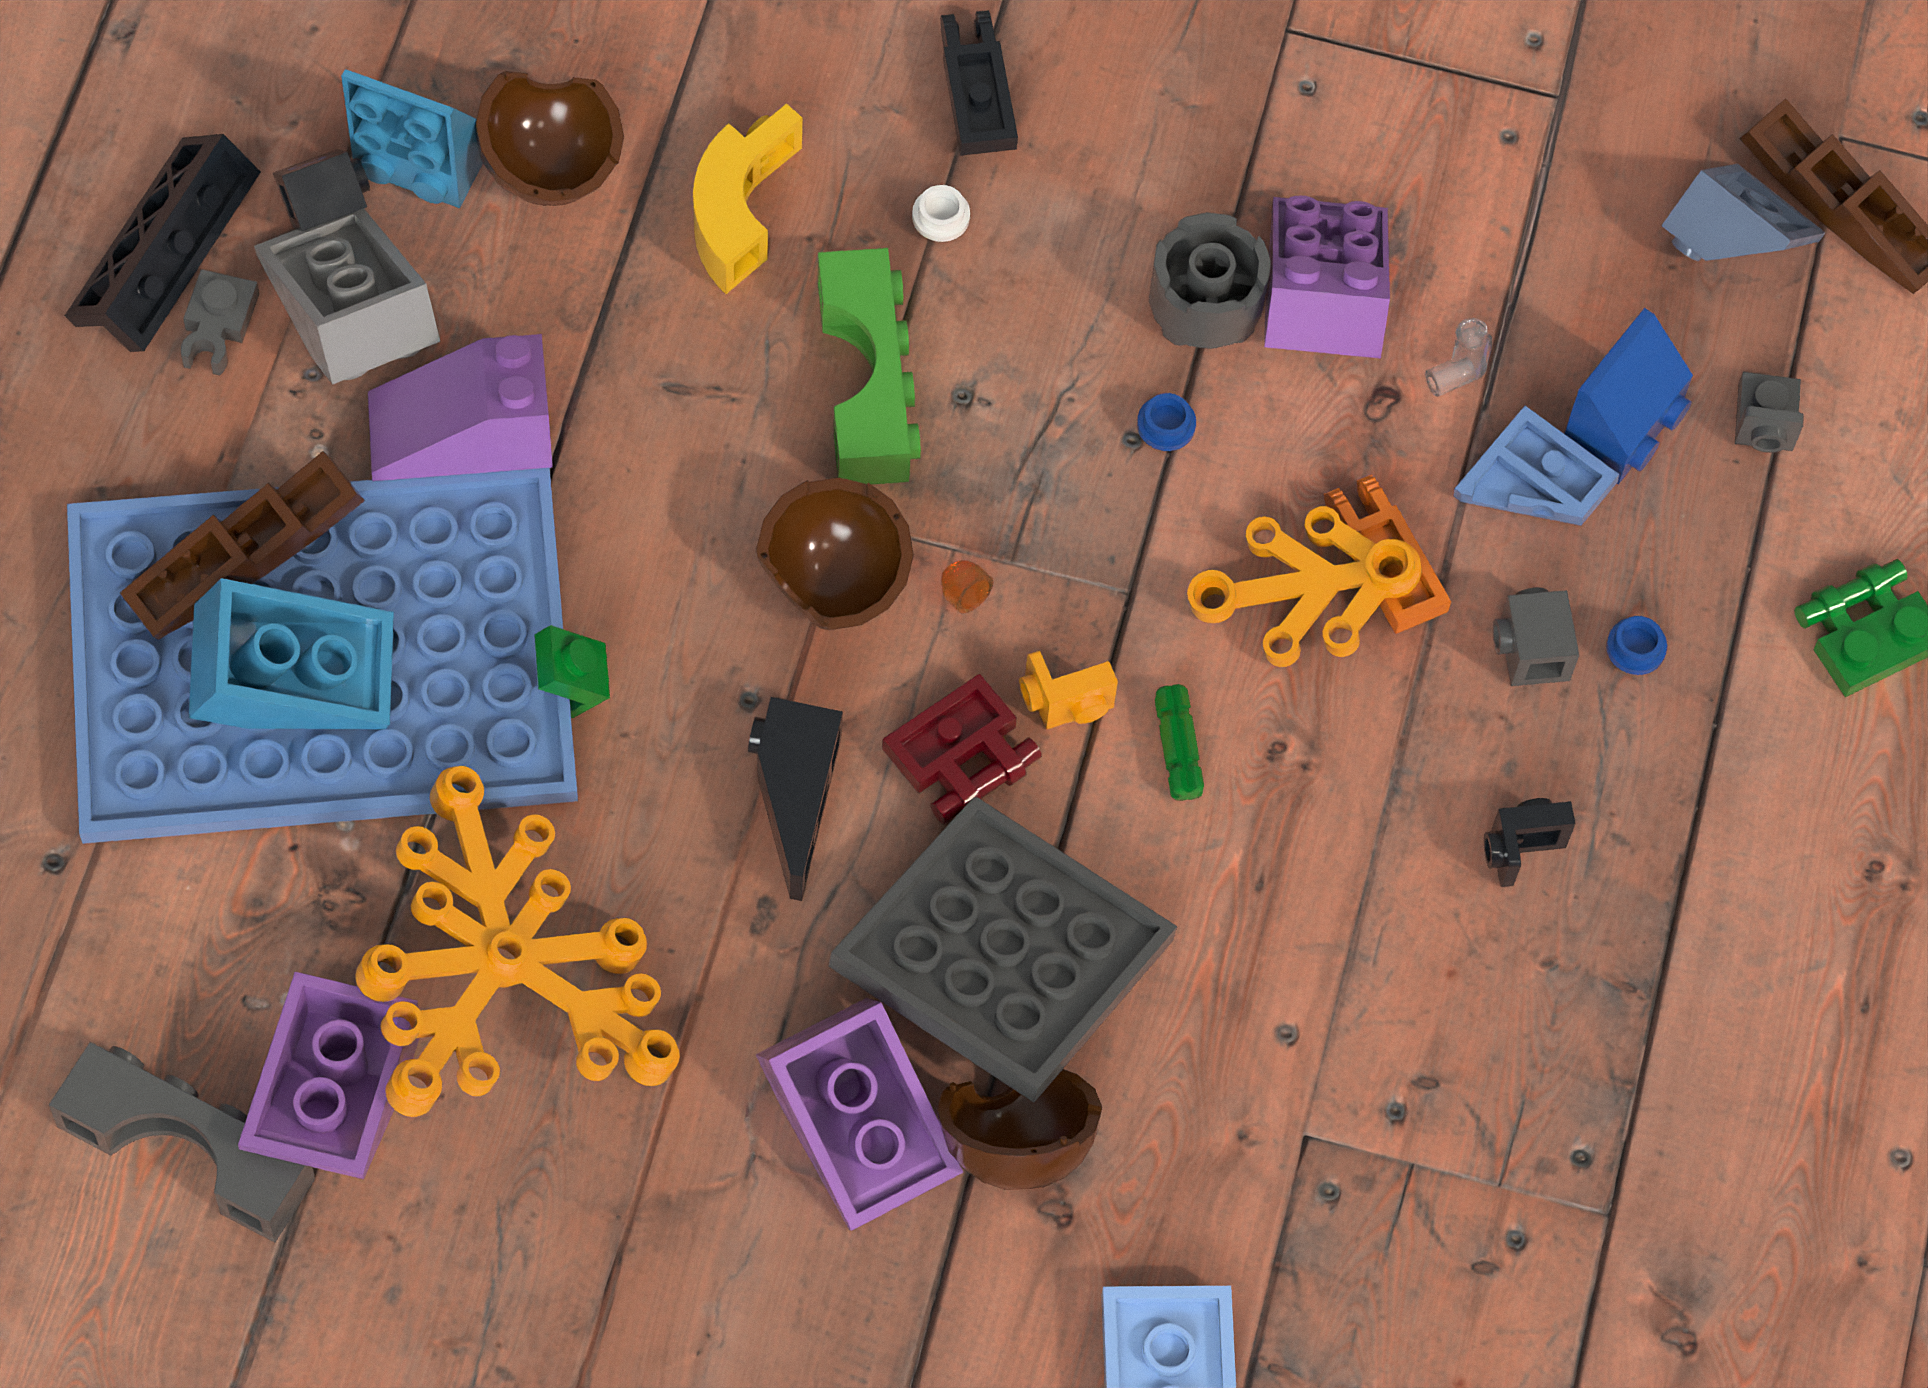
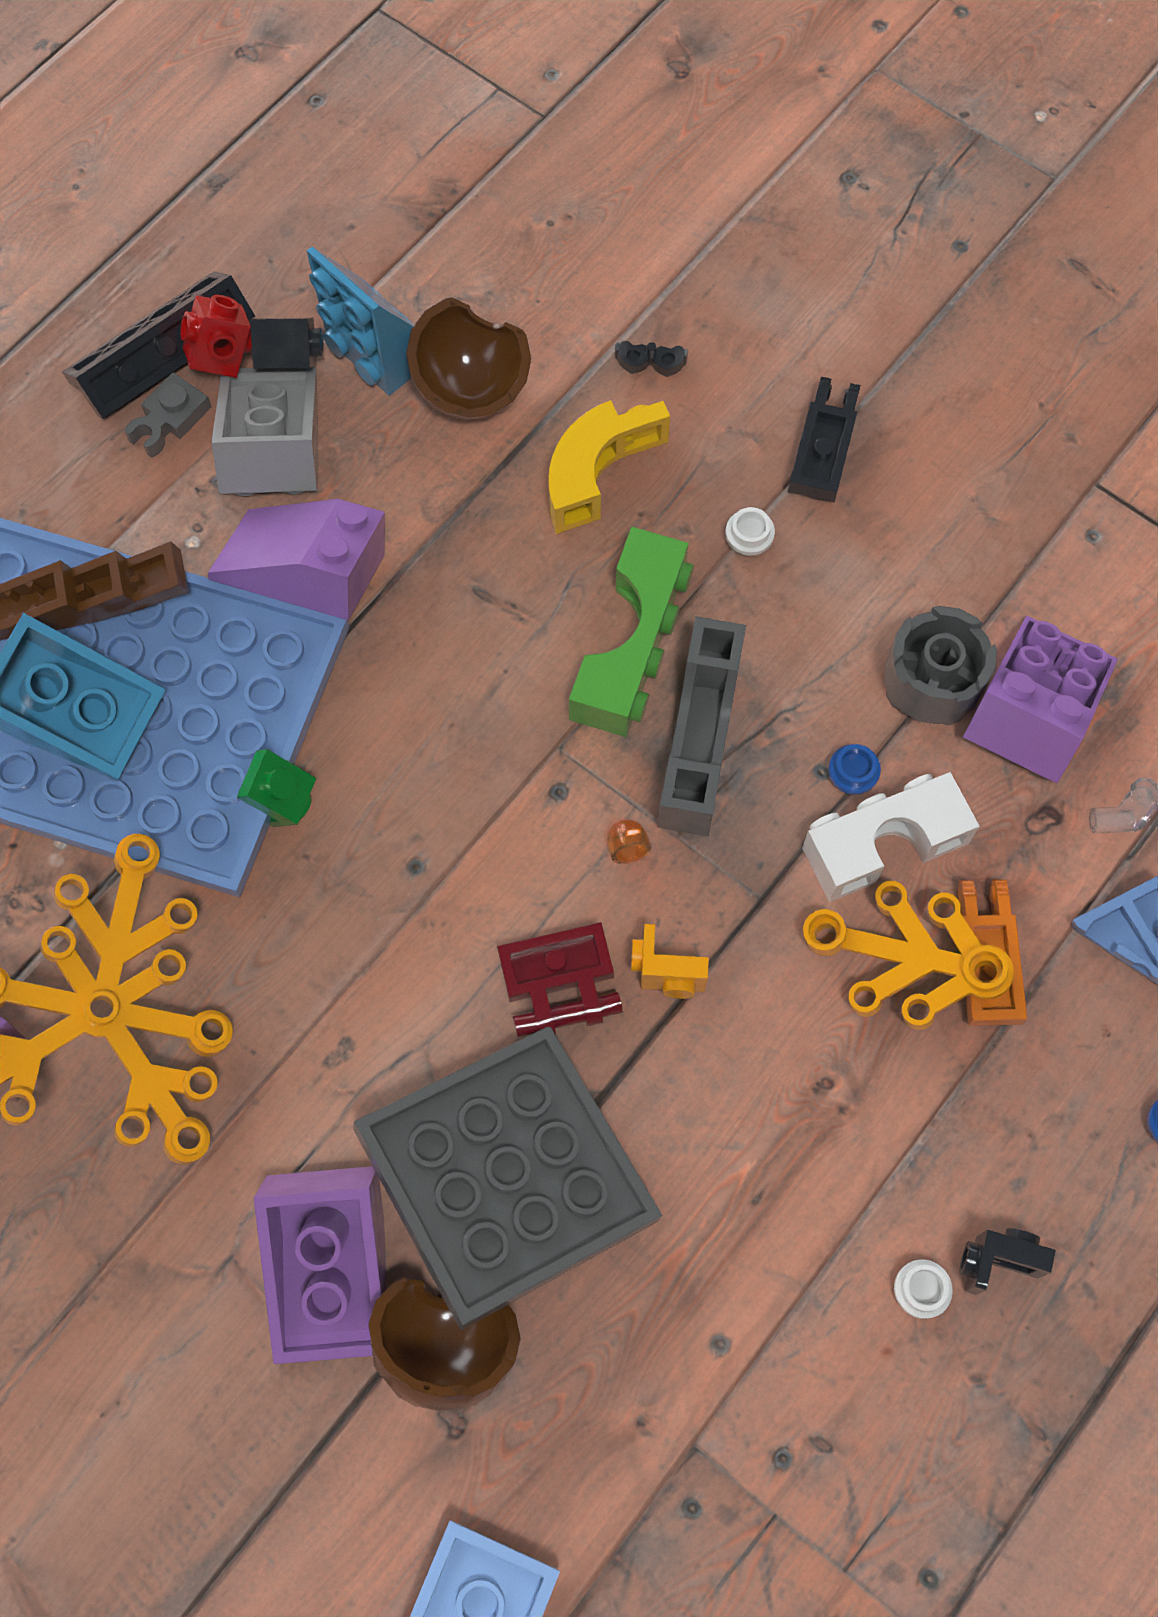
camera: 30 degrees right, 5 degrees up
(242, 208) = (216, 335): none -> red brick
(753, 58) = (638, 357): none -> black piece
(794, 771) = (414, 947): black slope -> none
(836, 551) = (528, 775): reddish brown cylinder -> none
(981, 410) = (701, 726): none -> dark grey arch
(1179, 742) = (742, 1047): green axle -> none
(1262, 440) = (926, 814): none -> white arch
(1460, 898) = (923, 1289): none -> white plate
(1537, 637) = (1090, 1080): dark grey brick -> none

